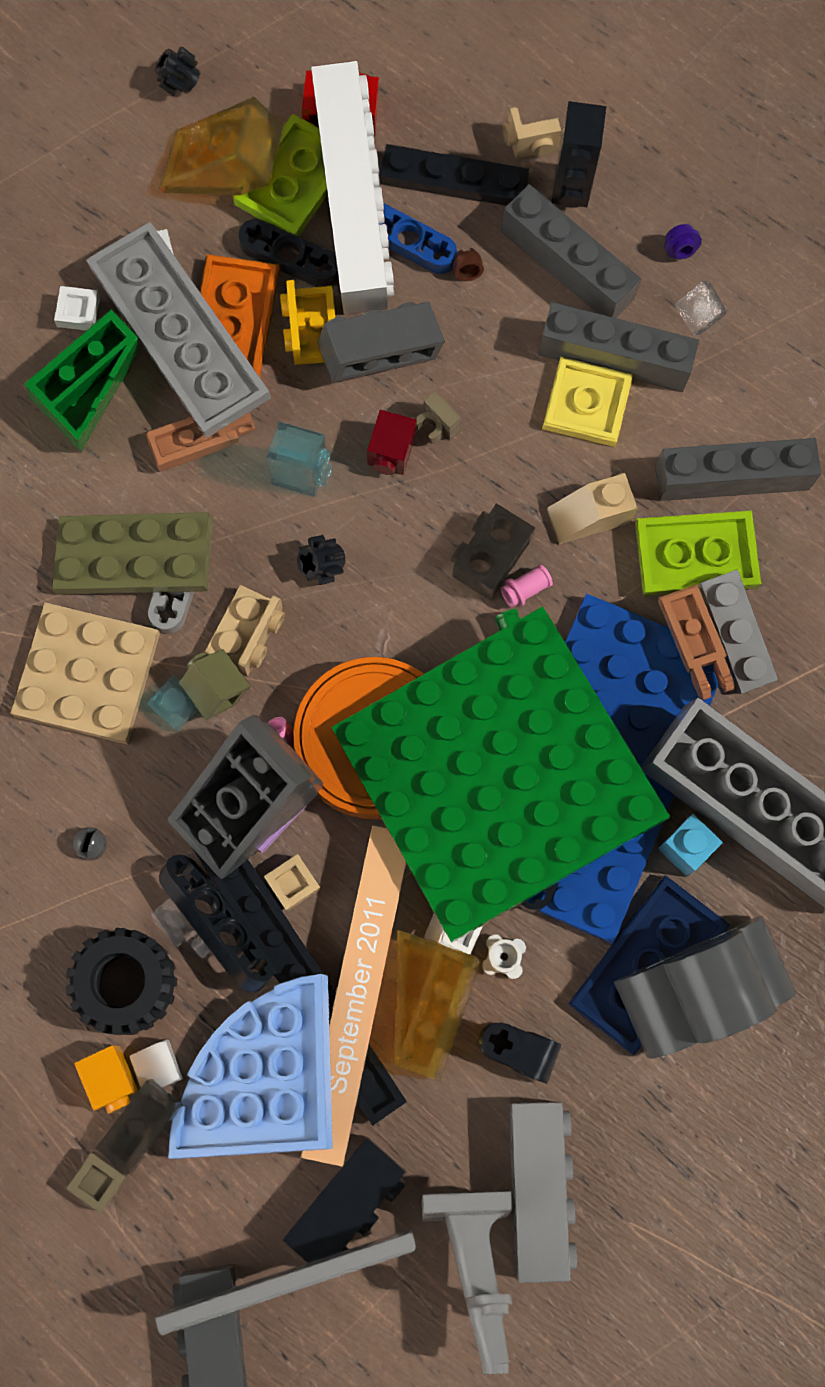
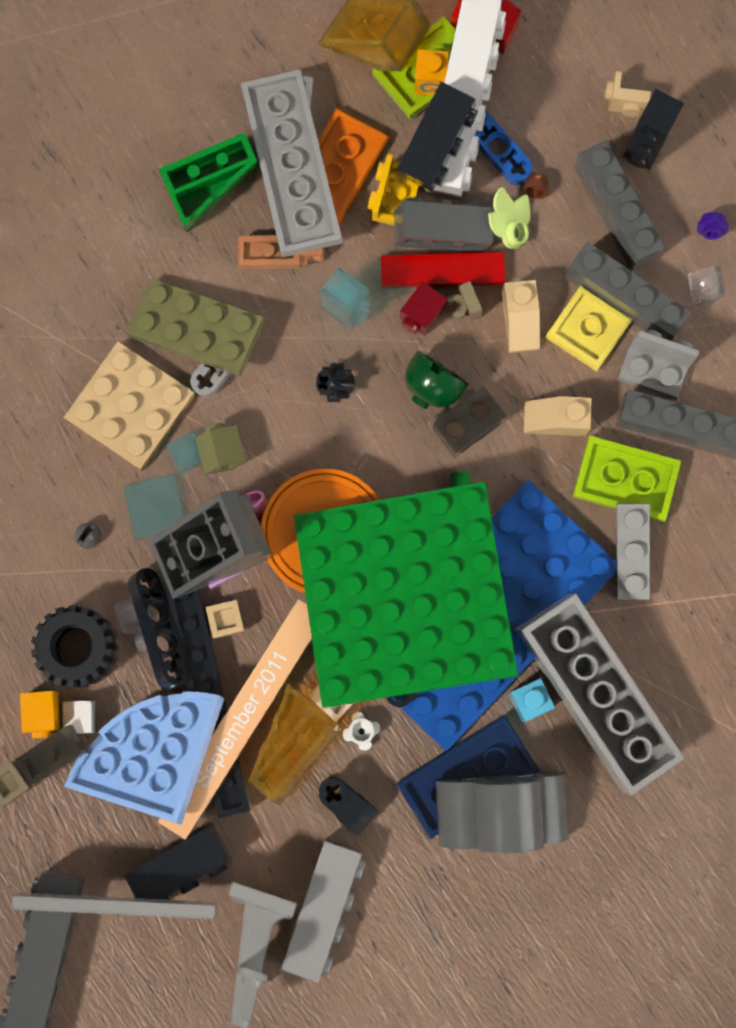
camera: 25 degrees right, 5 degrees up
(76, 308) = (221, 118): white plate -> none
(156, 780) = (153, 506): none -> clear light blue piece
(247, 628) = (260, 415): tan bracket -> none
(282, 238) = (379, 118): black beam -> none
(303, 175) = (430, 71): none -> light orange brick
(341, 235) = (438, 137): none -> black brick
(396, 392) = (442, 269): none -> red tile
(435, 520) = (432, 382): none -> dark green cylinder
(452, 175) = (552, 108): black plate -> none
(453, 309) = (510, 218): none -> yellowish green plate
(507, 411) = (521, 316): none -> tan slope
(526, 586) = (484, 457): bright pink pin -> none
(681, 410) = (657, 363): none -> light grey bracket
(696, 638) = (596, 545): nougat hinge -> none

